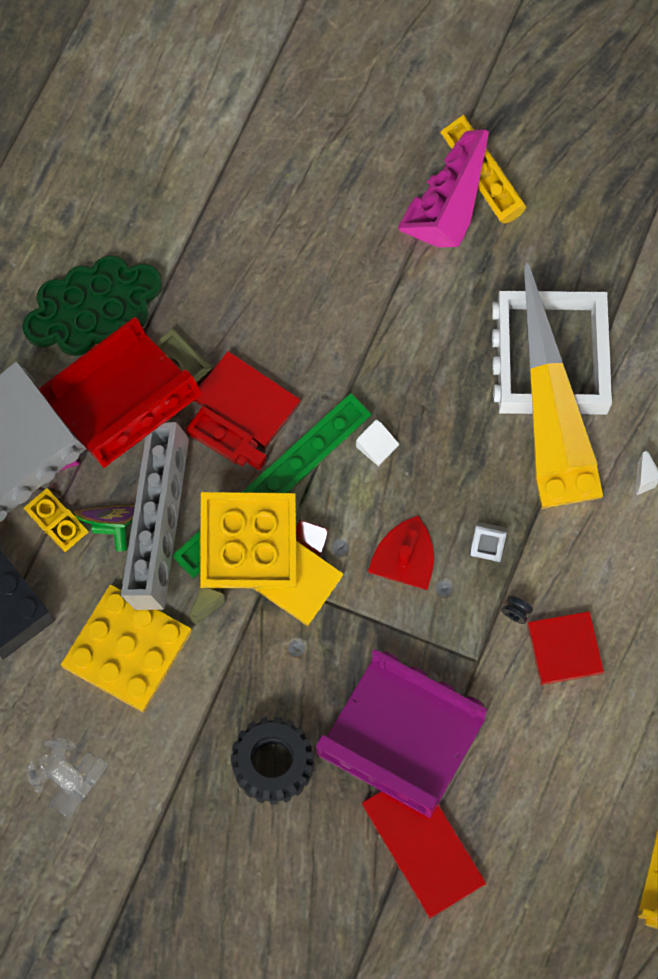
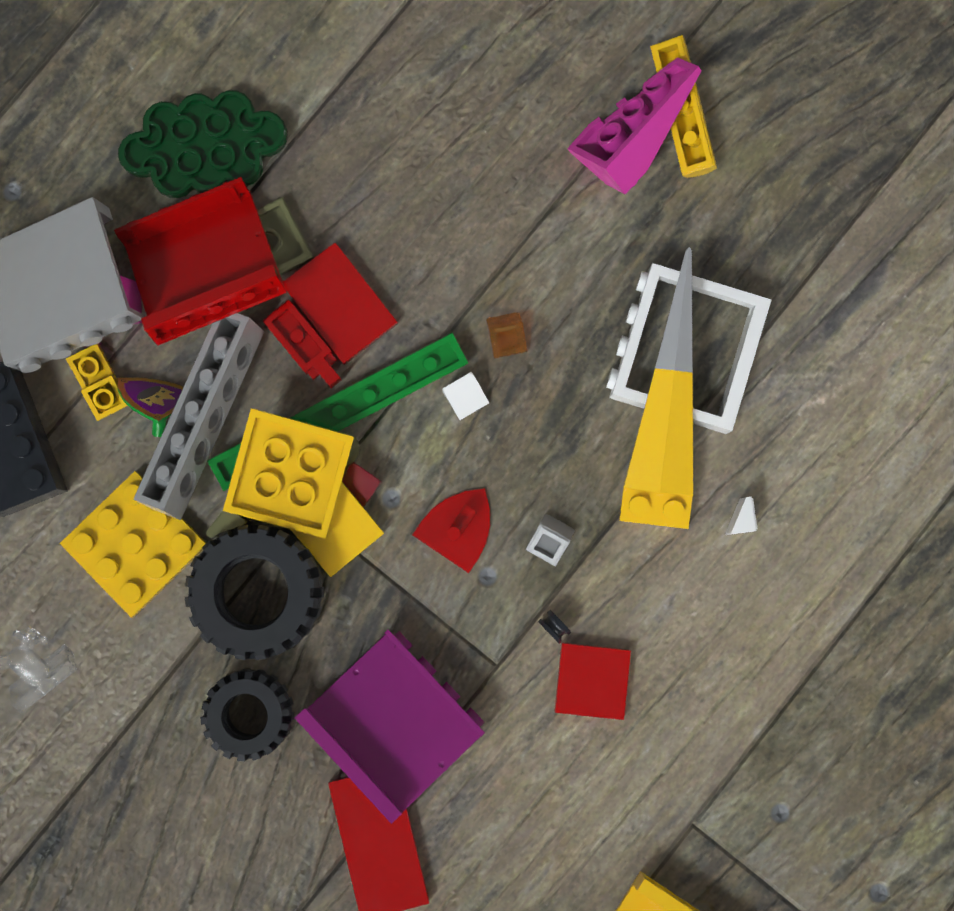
camera: 10 degrees right, 15 degrees up
(247, 610) = (208, 601): none -> black tyre
(396, 386) = (506, 335): none -> clear orange slope

